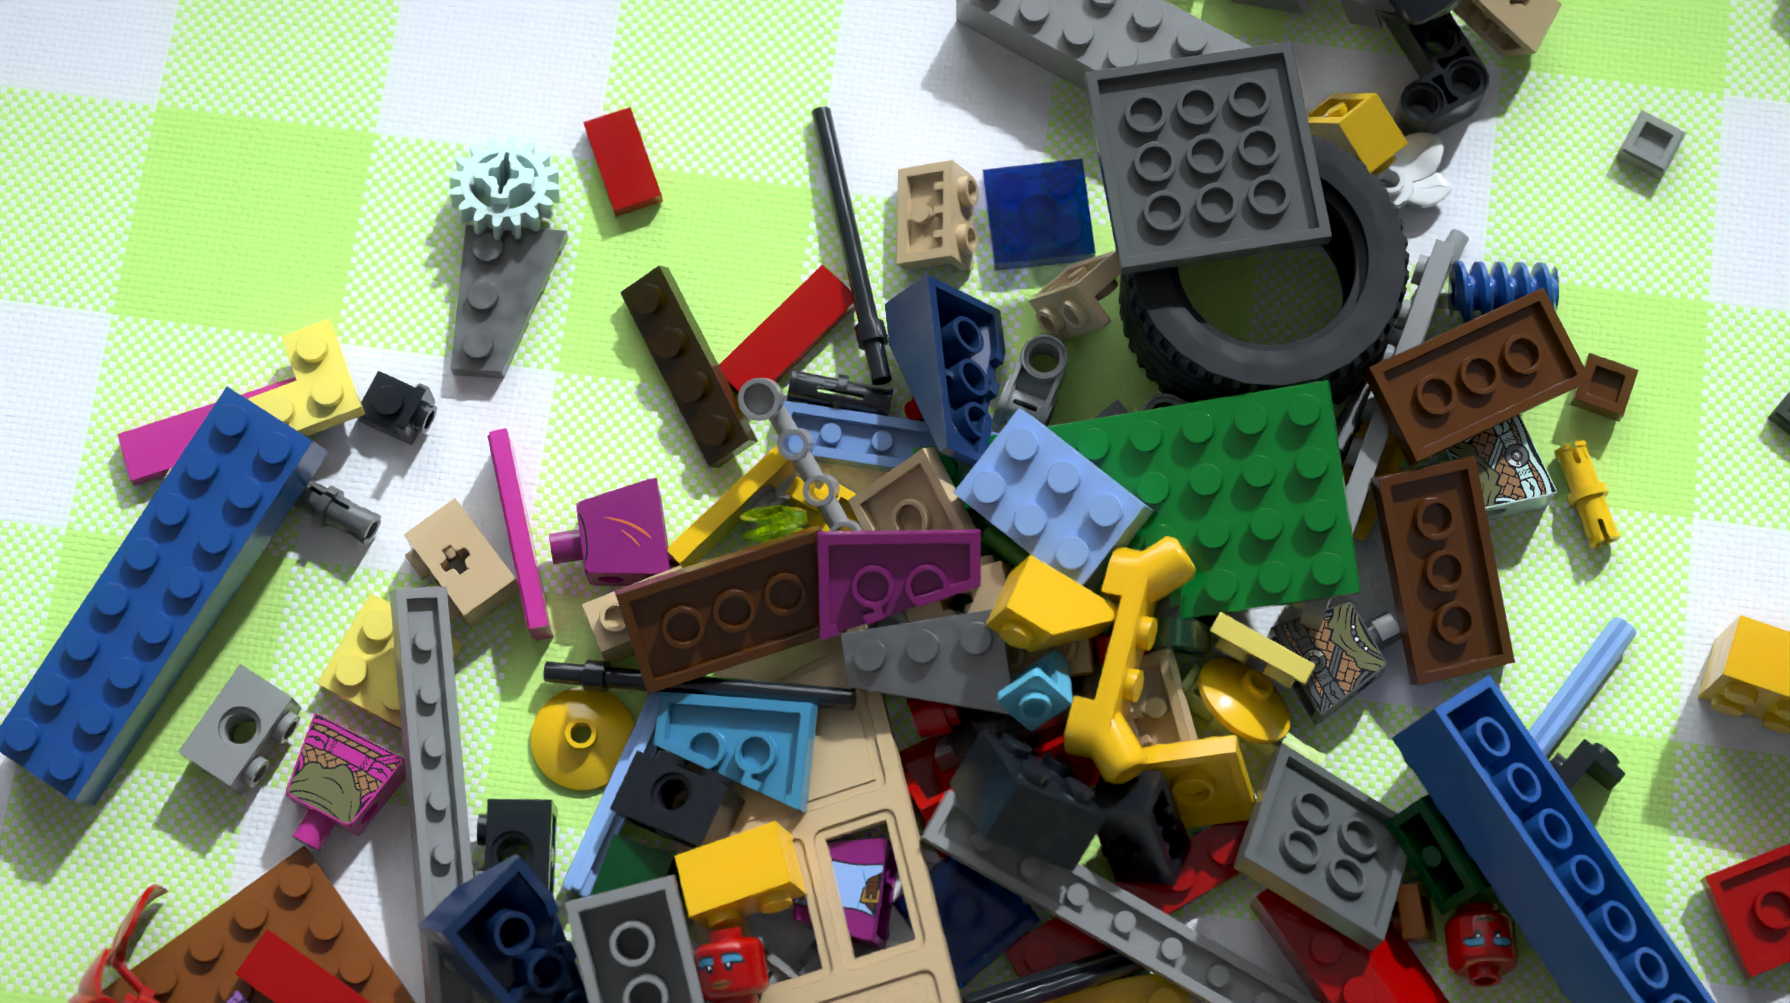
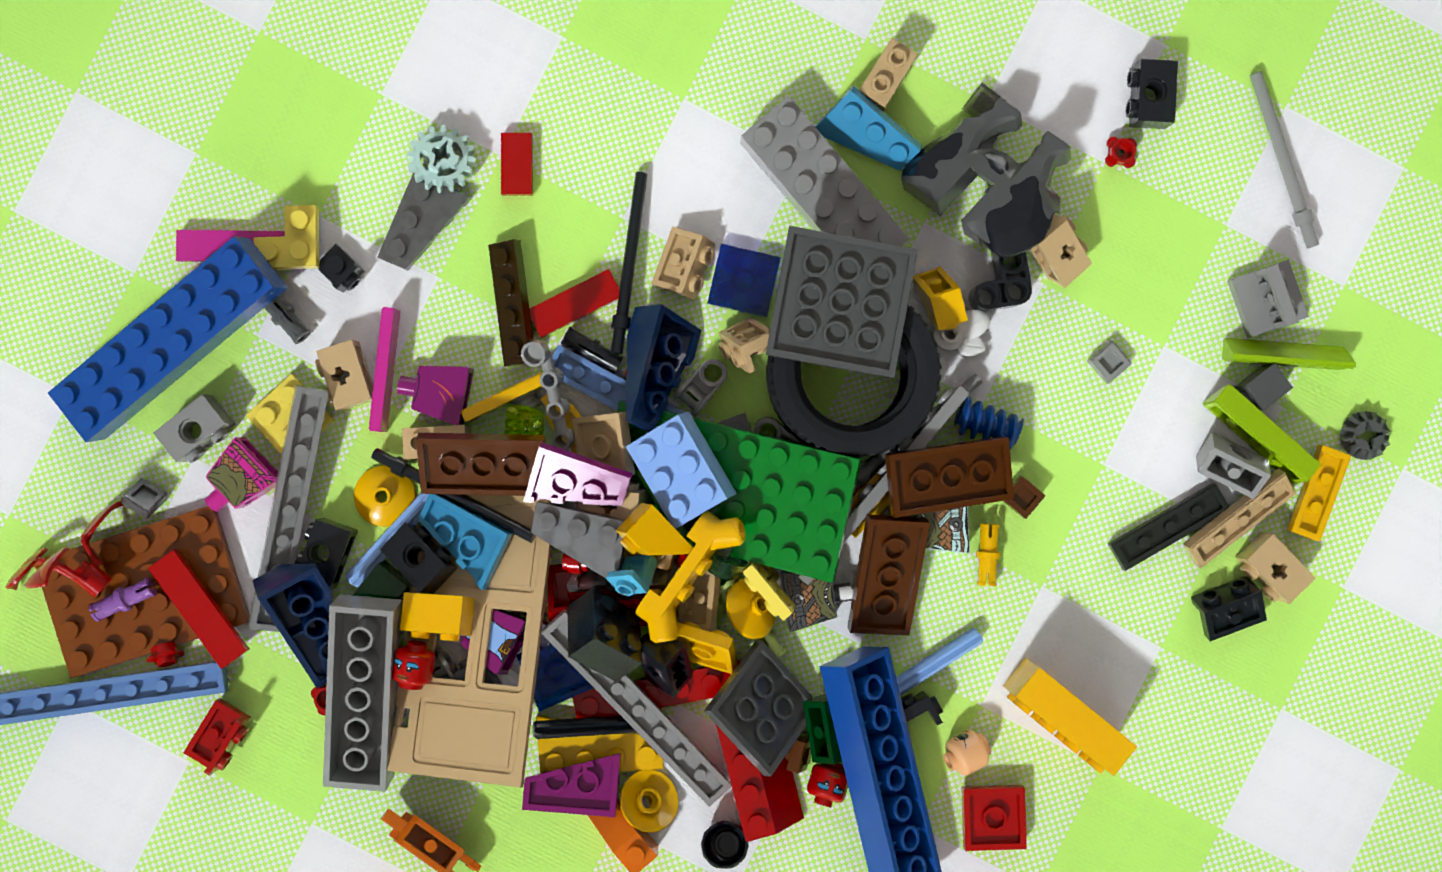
camera: 15 degrees right, 15 degrees up
(191, 871) = (144, 498): none -> flat silver tile
(1685, 815) = (967, 752): none -> light nougat head

